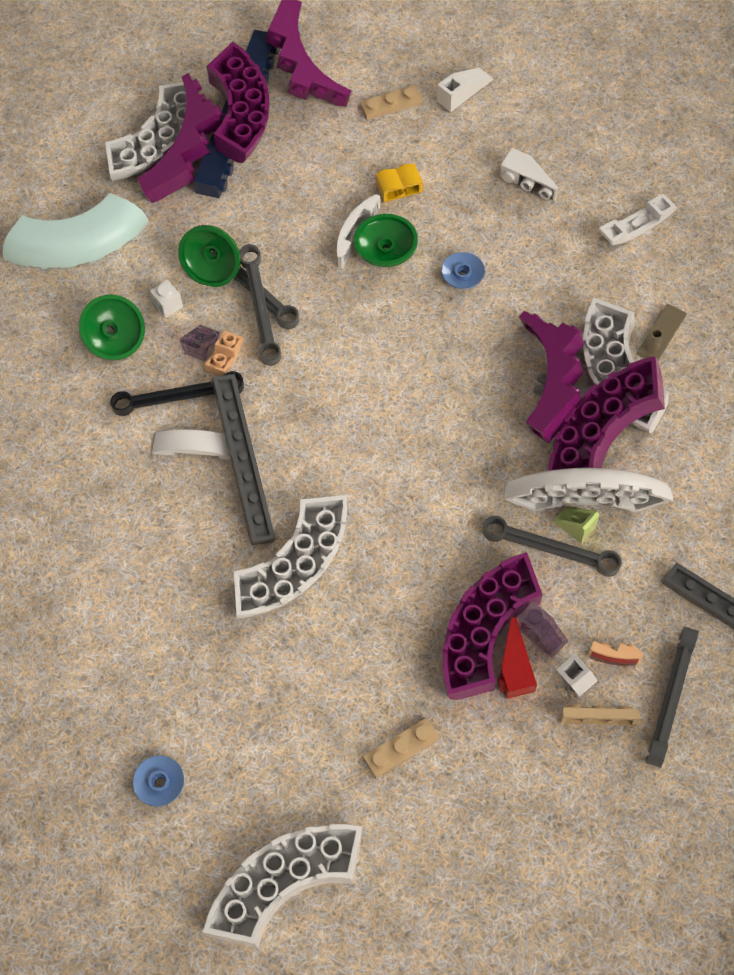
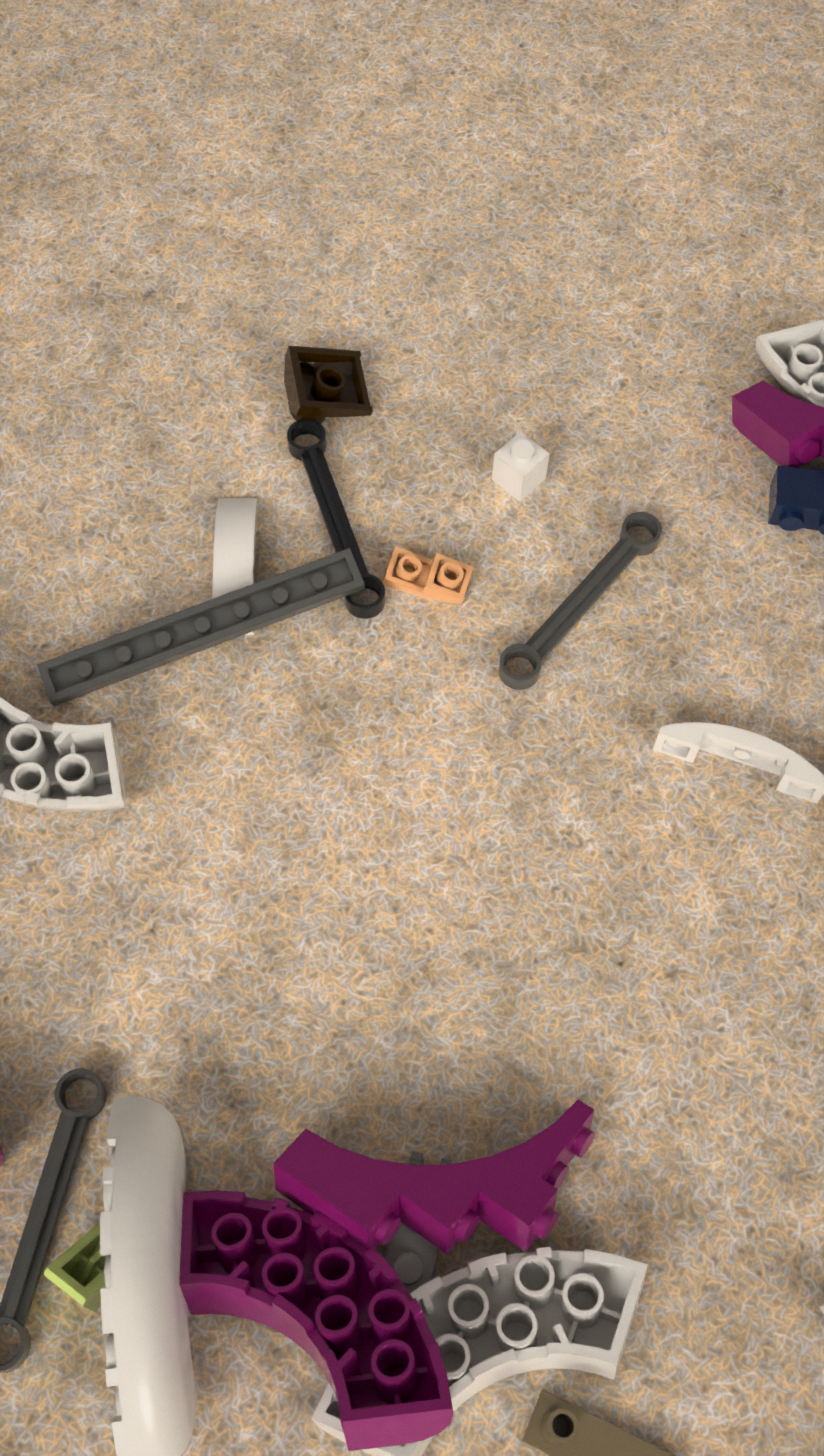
camera: 80 degrees right, 0 degrees up
(74, 239) = (625, 327): light aqua brick -> none
(88, 389) = (325, 383): none -> dark brown slope
(118, 314) = (427, 378): green dish -> none
(198, 341) = (439, 525): slope -> none
(202, 263) = (613, 509): green dish -> none
(260, 305) = (531, 611): dark grey piece -> none
(382, 232) = (733, 793): green dish -> none
(465, 263) = (697, 959): medium blue dish -> none

